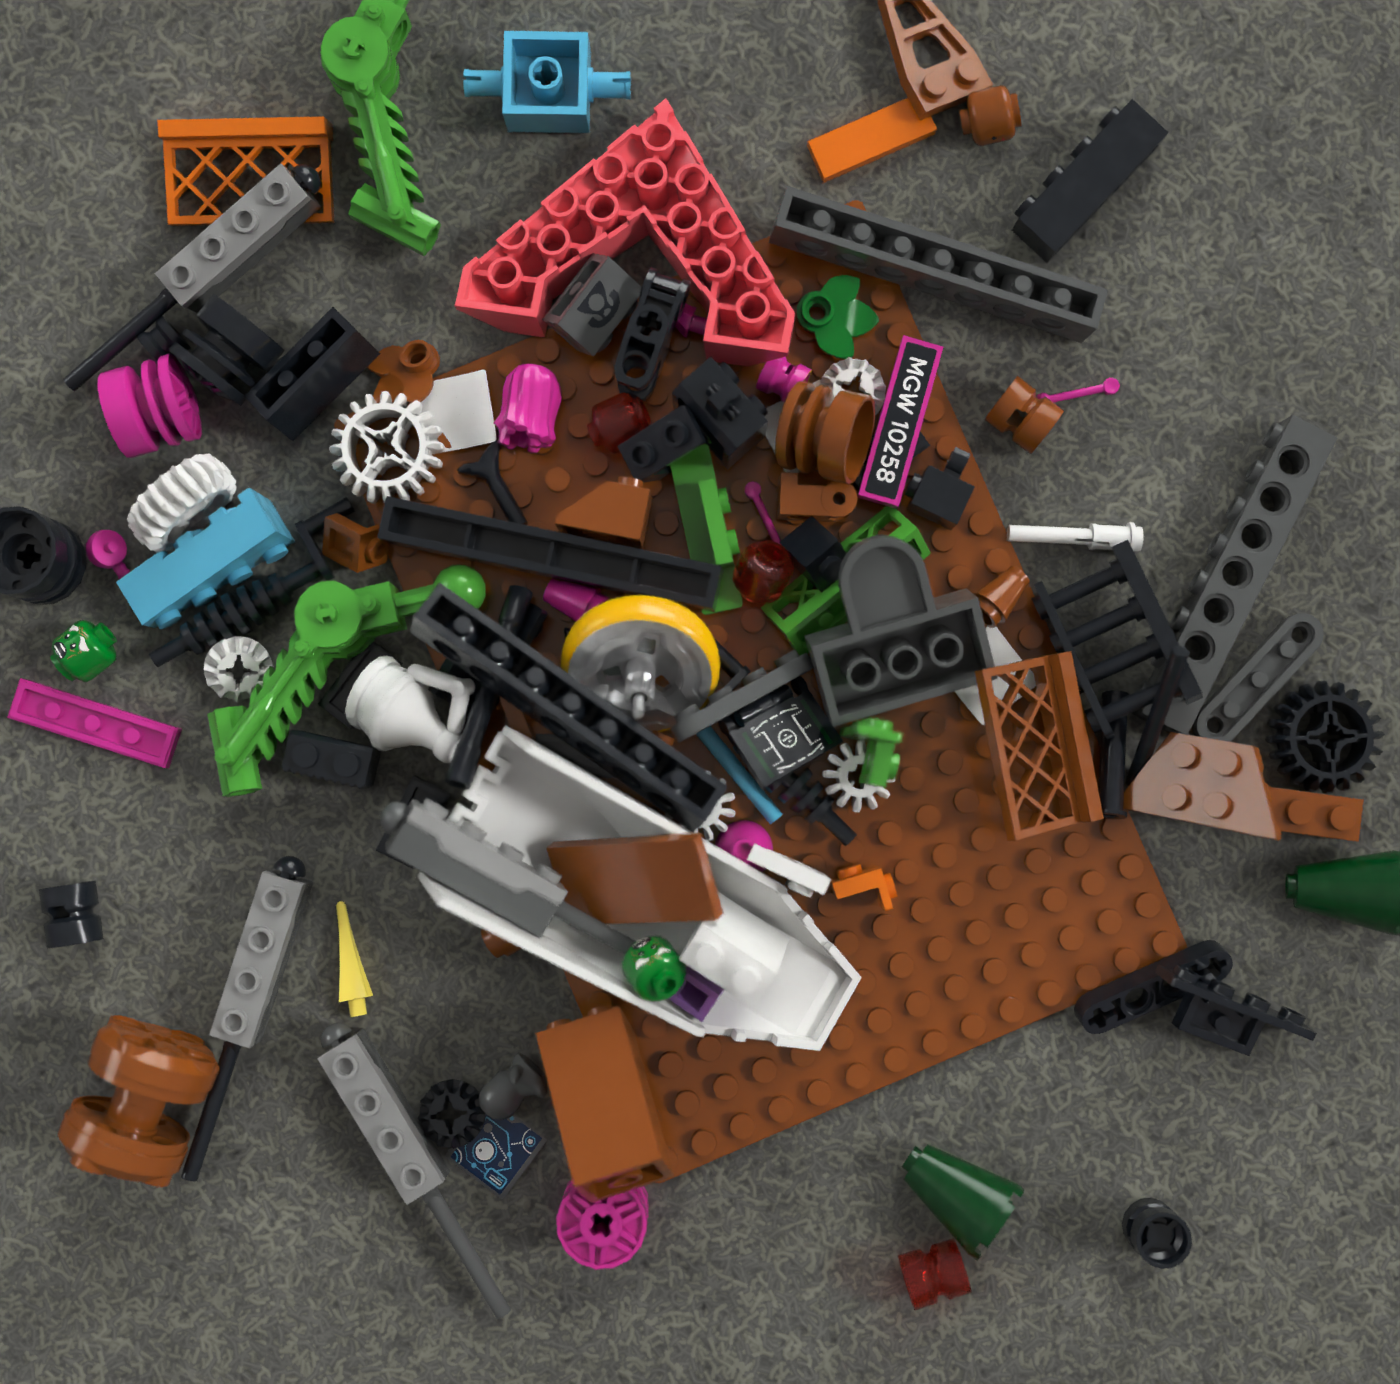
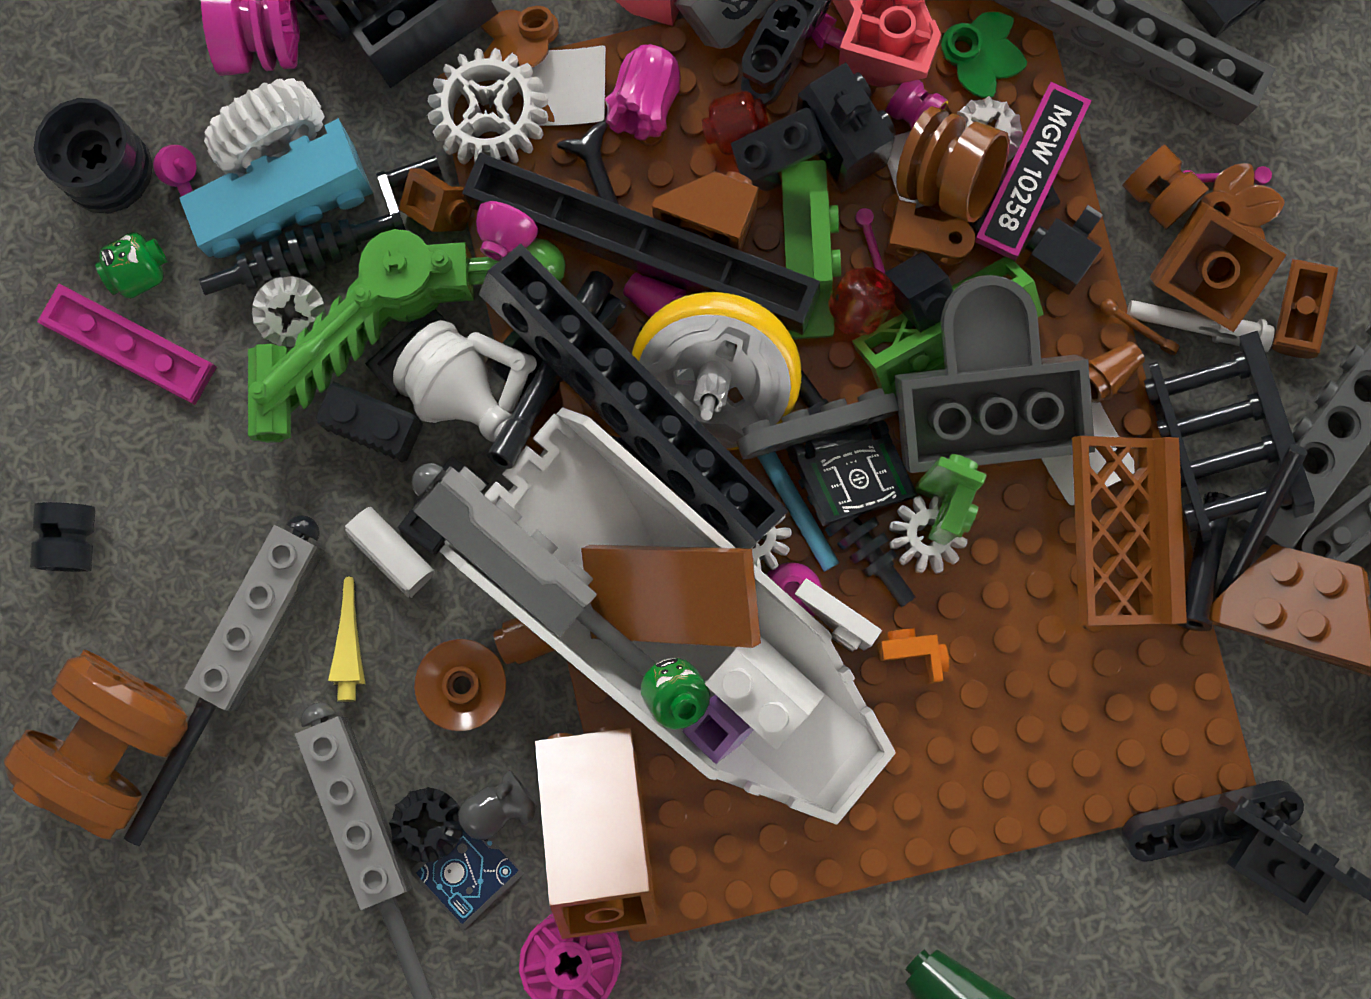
camera: 15 degrees right, 5 degrees down
(372, 873) = (389, 551): none -> white brick
(422, 566) = (503, 229): none -> dark pink brick
(444, 999) = (437, 678): none -> dark orange dish
(990, 537) = (1110, 307): none -> dark orange hinge
(1081, 483) = (1217, 266): none -> dark orange slope
(1100, 419) = (1244, 201): none -> dark orange plate
(1167, 506) = (1304, 309): none -> dark orange brick

